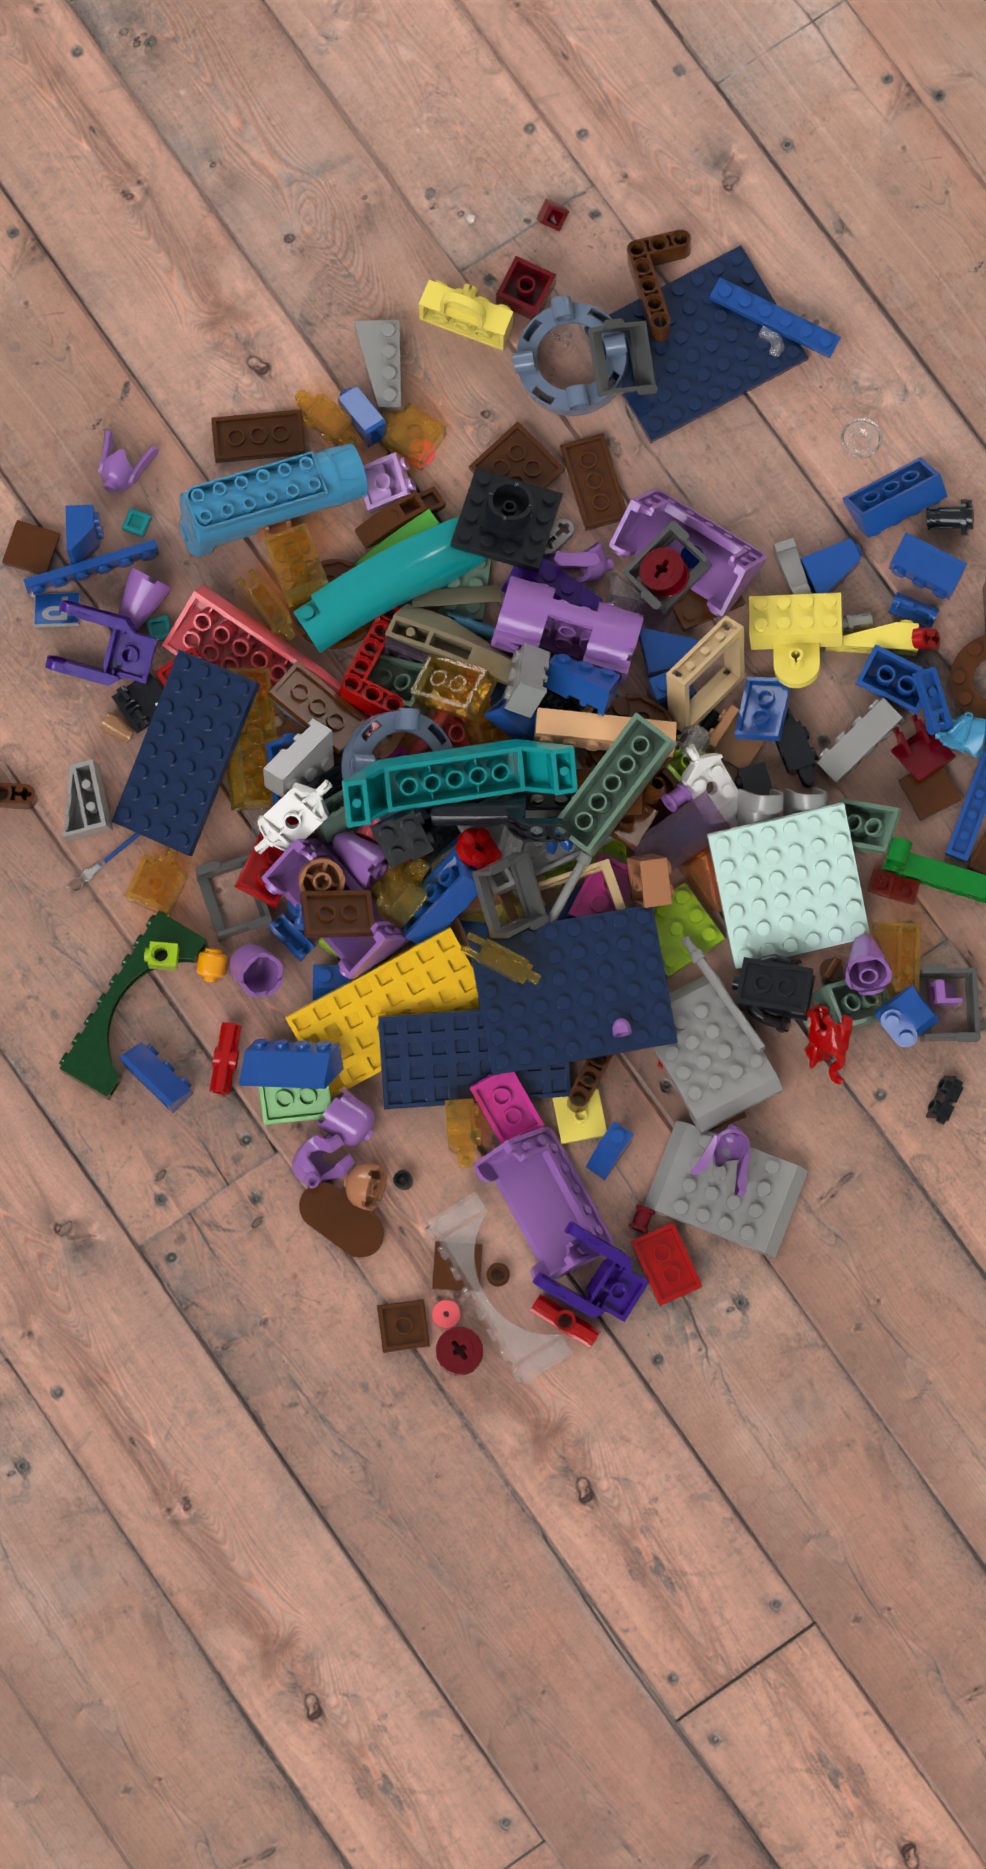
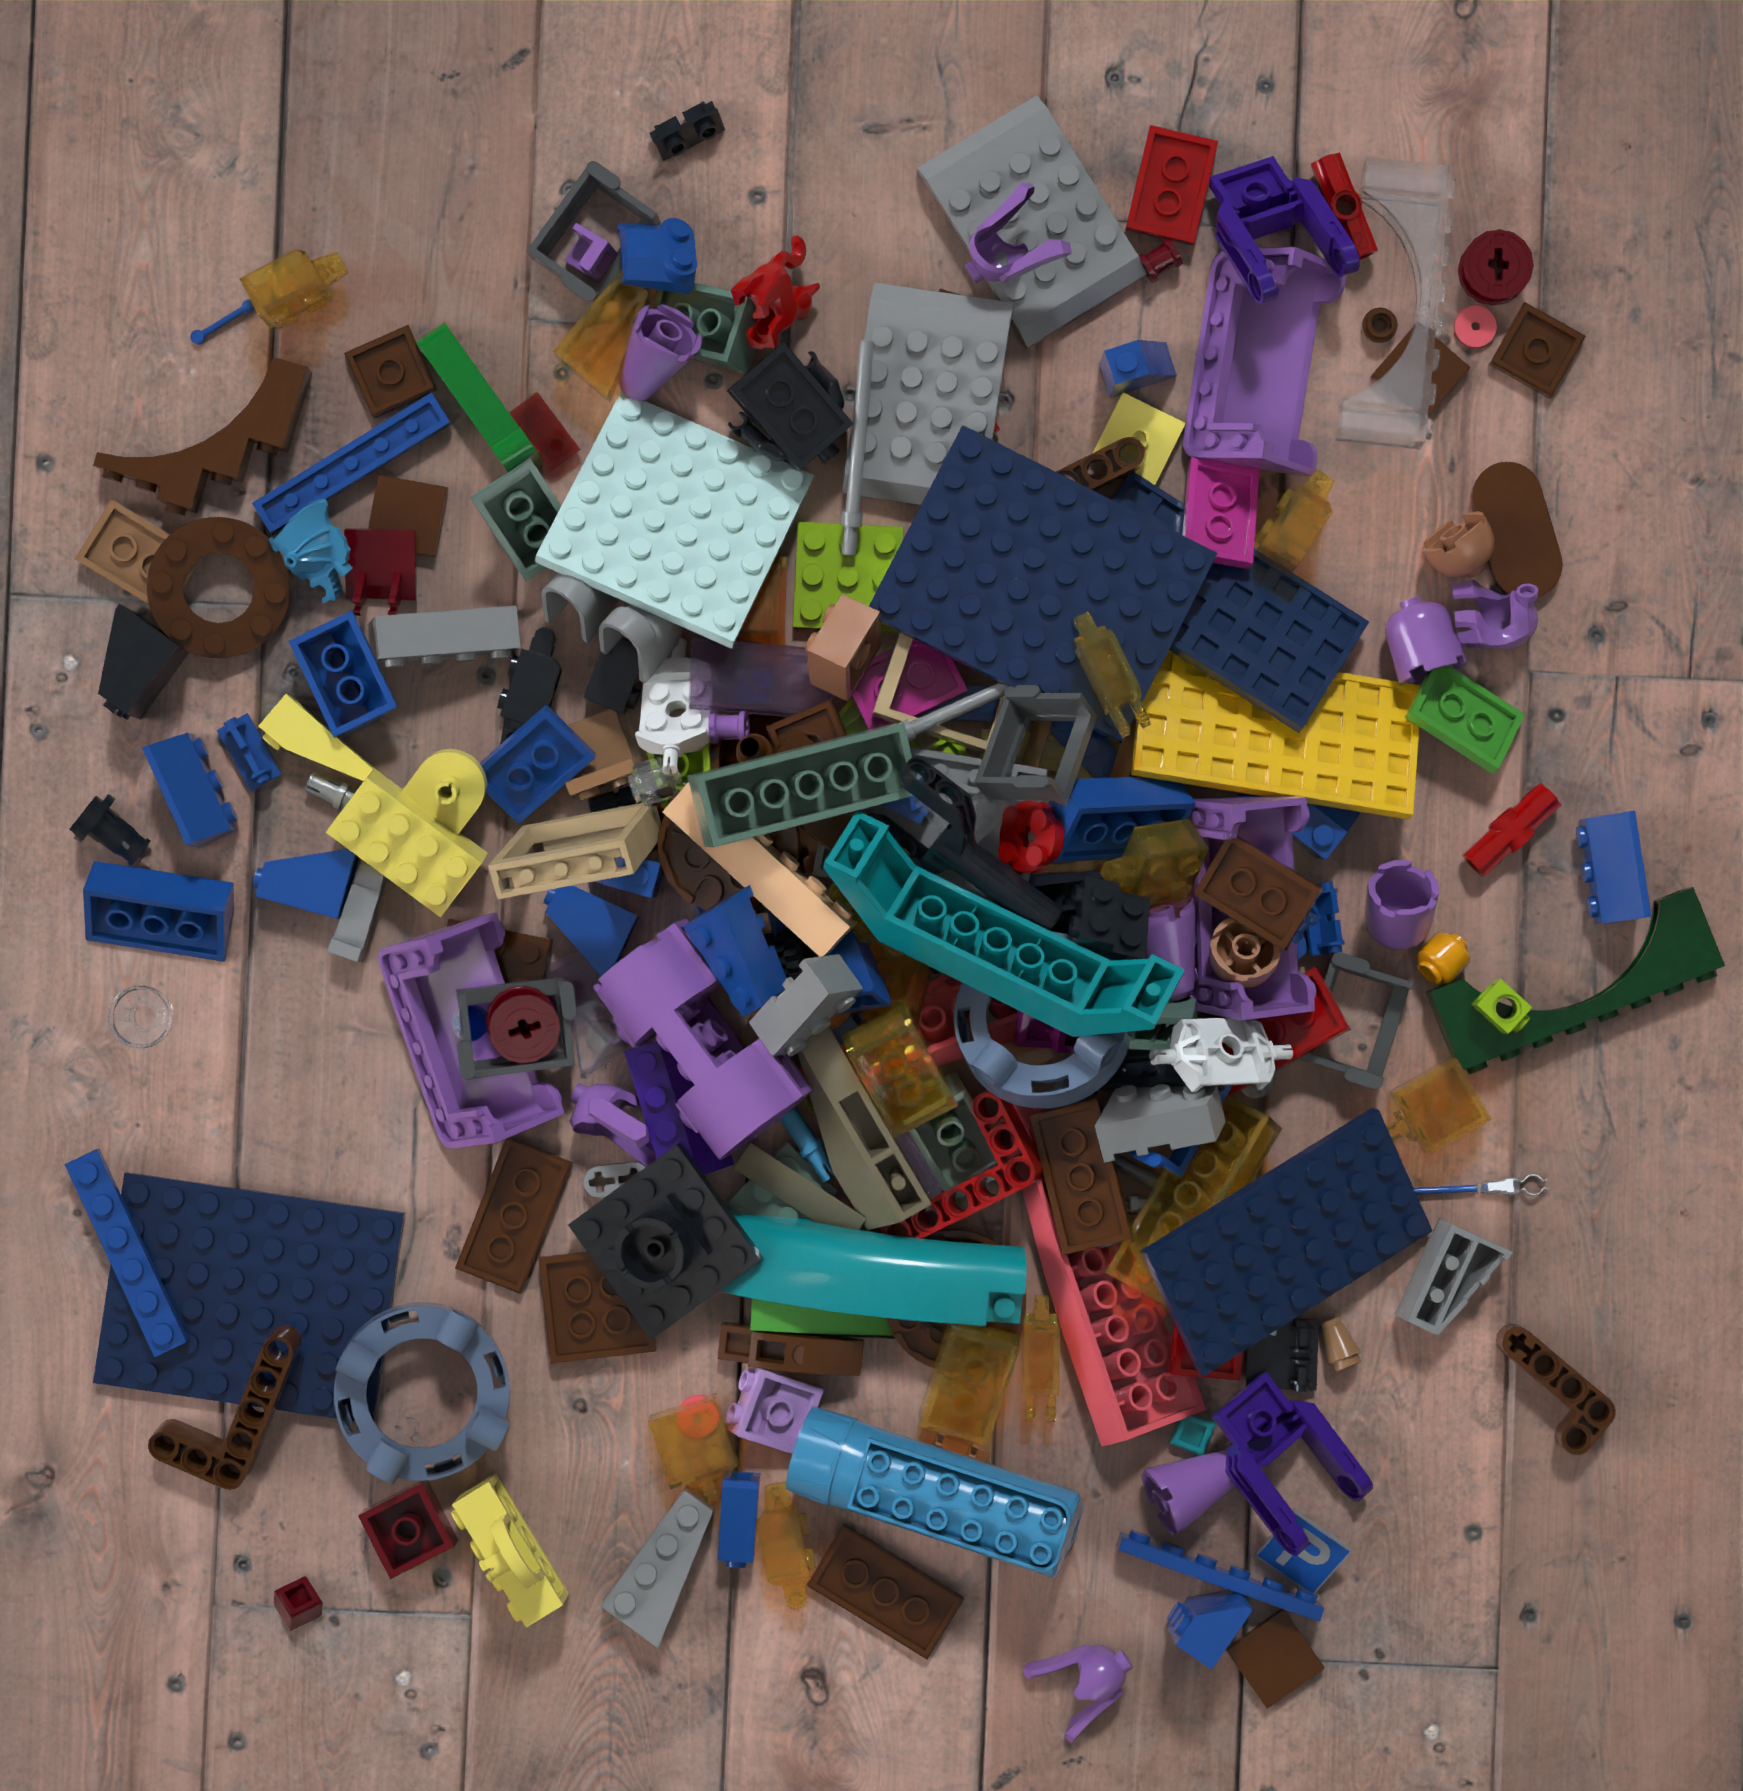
camera: 140 degrees left, 10 degrees up
(136, 522) = (1119, 1592): teal tile -> none
(291, 1064) = (1449, 752): blue slope -> none
(406, 1176) = (1415, 518): black hinge -> none
(621, 1028) = (1021, 488): medium lavender hinge -> none
(639, 353) = (340, 1320): dark grey piece -> none
(774, 339) = (149, 1222): clear arm -> none
(831, 969) = (699, 387): reddish brown plate -> none
(925, 638) = (265, 700): red beam -> none
(932, 700) = (320, 611): blue plate -> none

